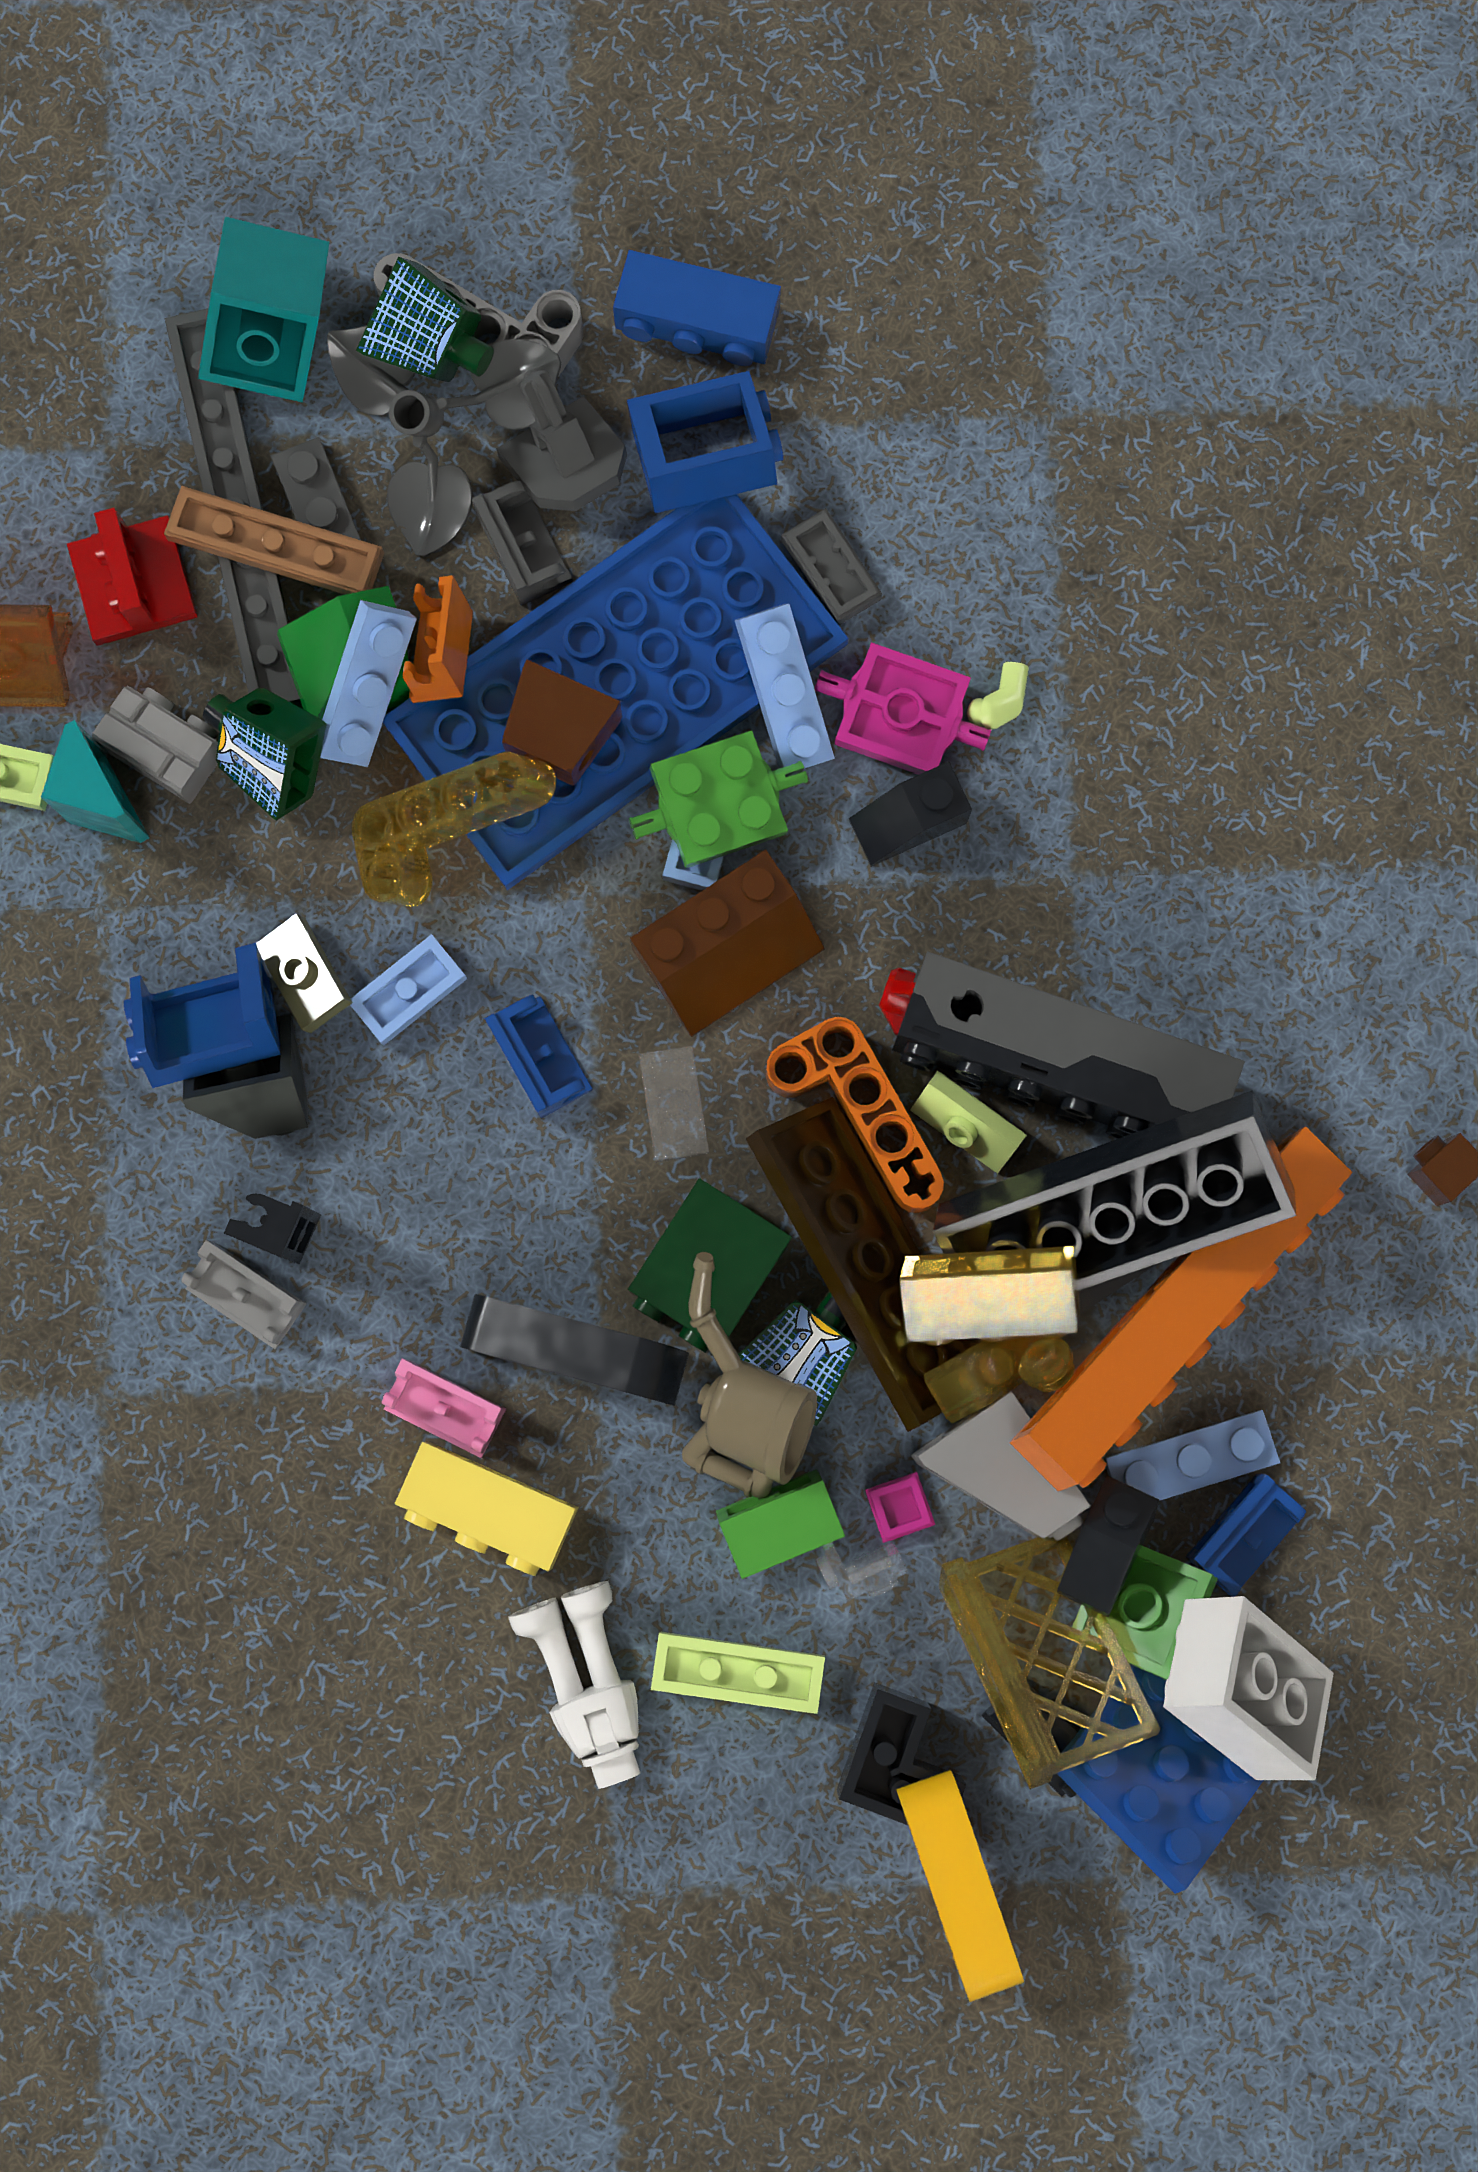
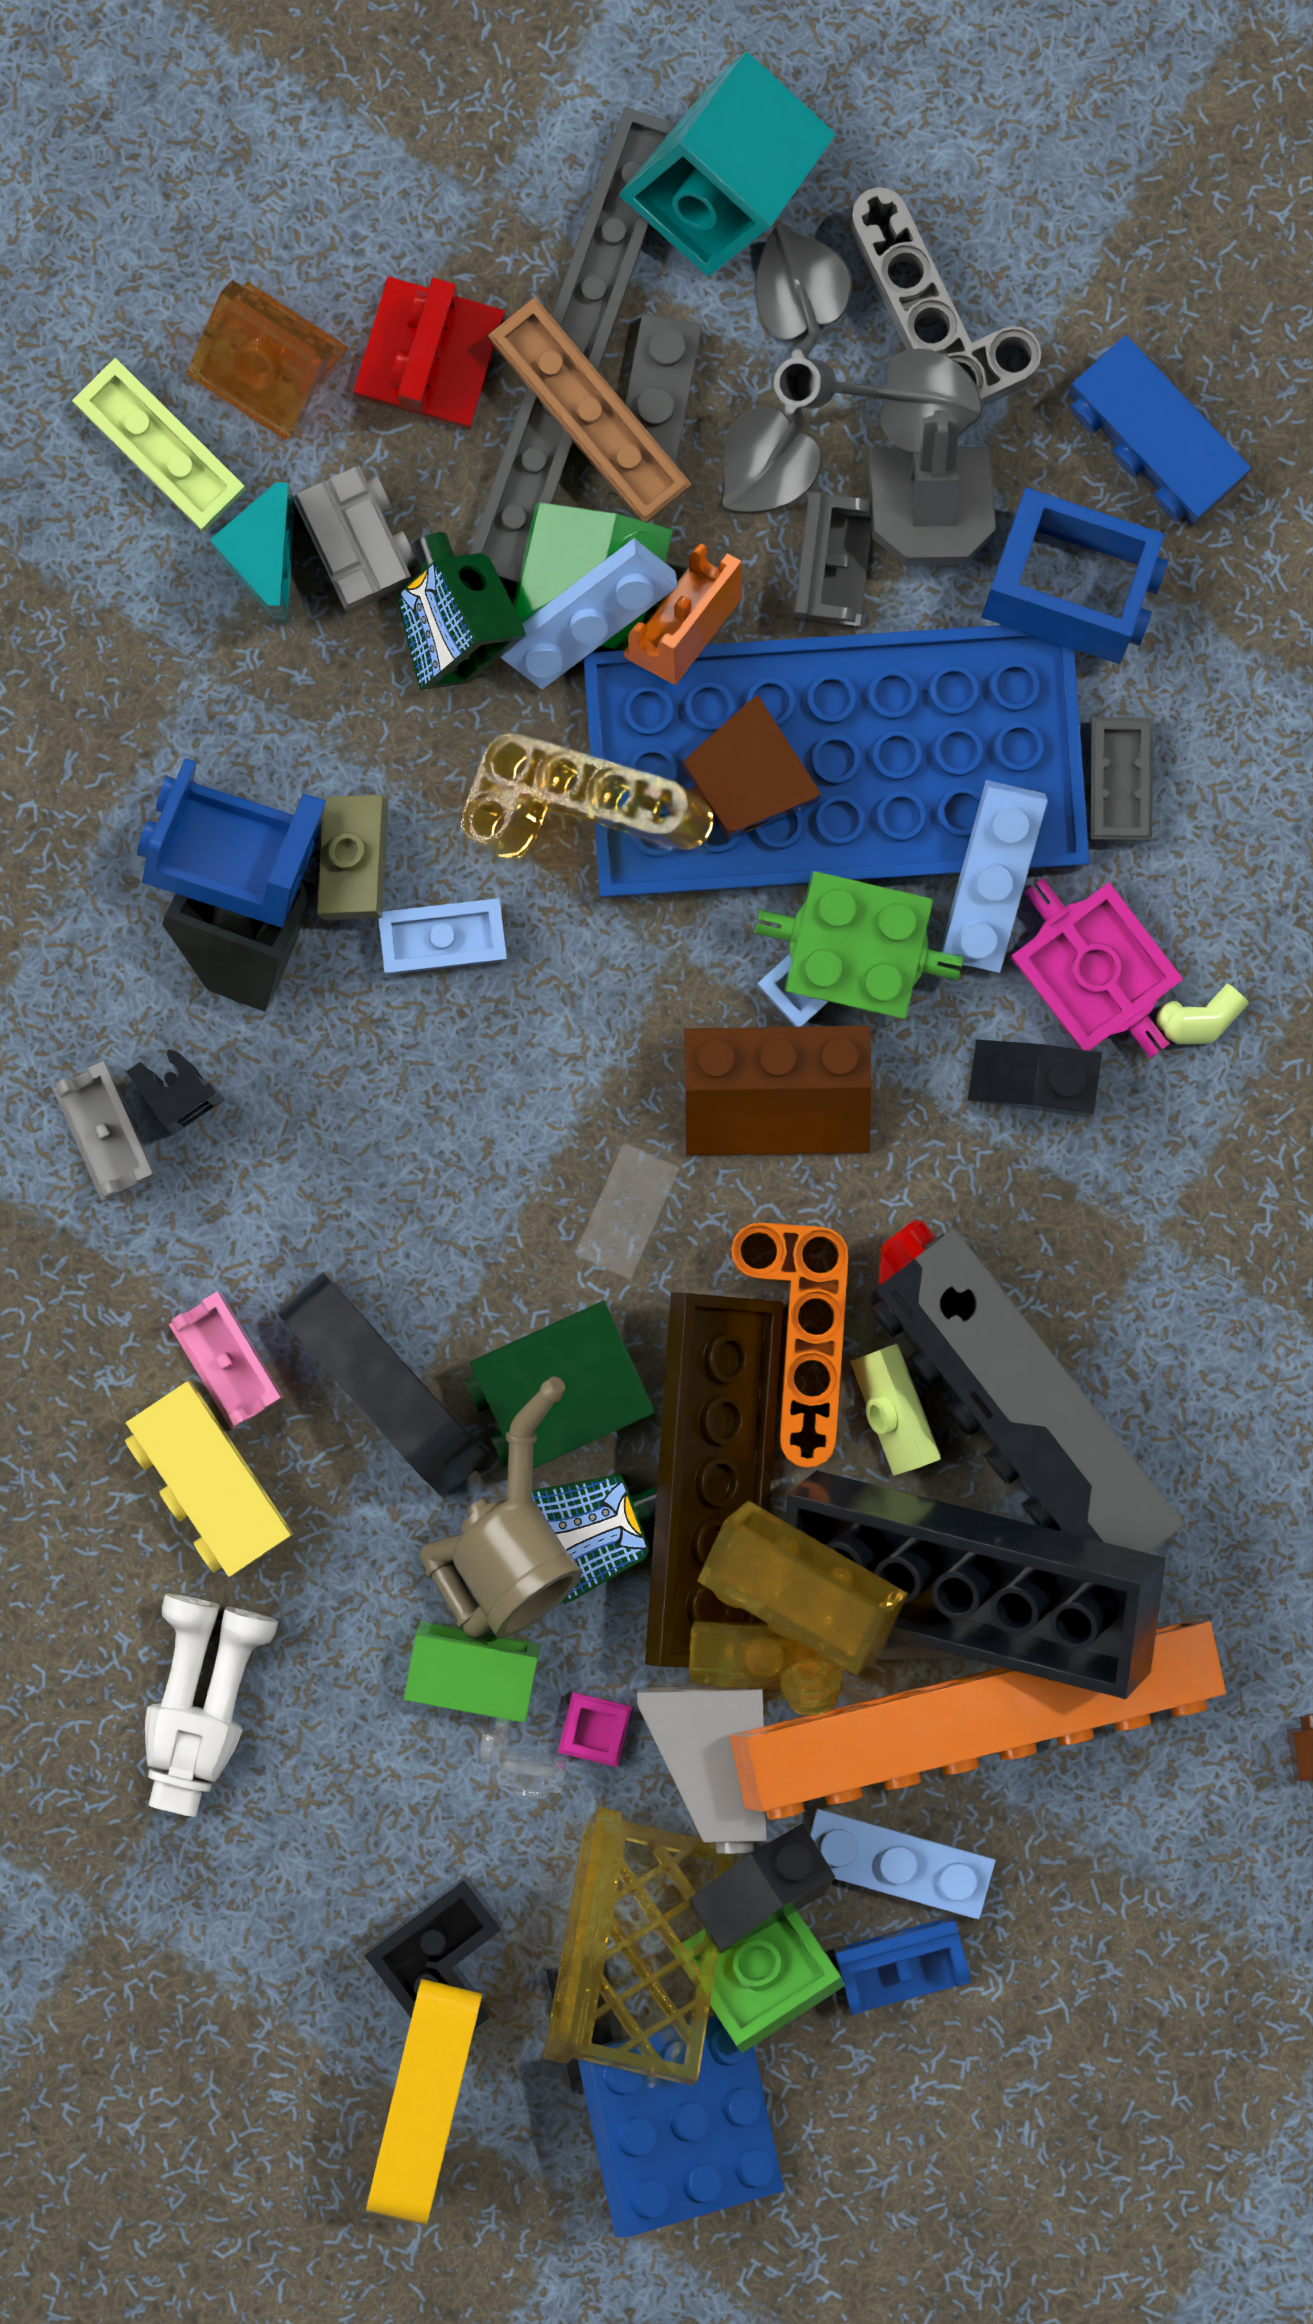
camera: 30 degrees right, 5 degrees up
(424, 326) = (871, 293): dark green torso -> none
(538, 1055) = (528, 1081): blue hinge -> none
(738, 1672) = (345, 1783): yellowish green plate -> none
(1248, 1688) = (803, 2099): white brick -> none

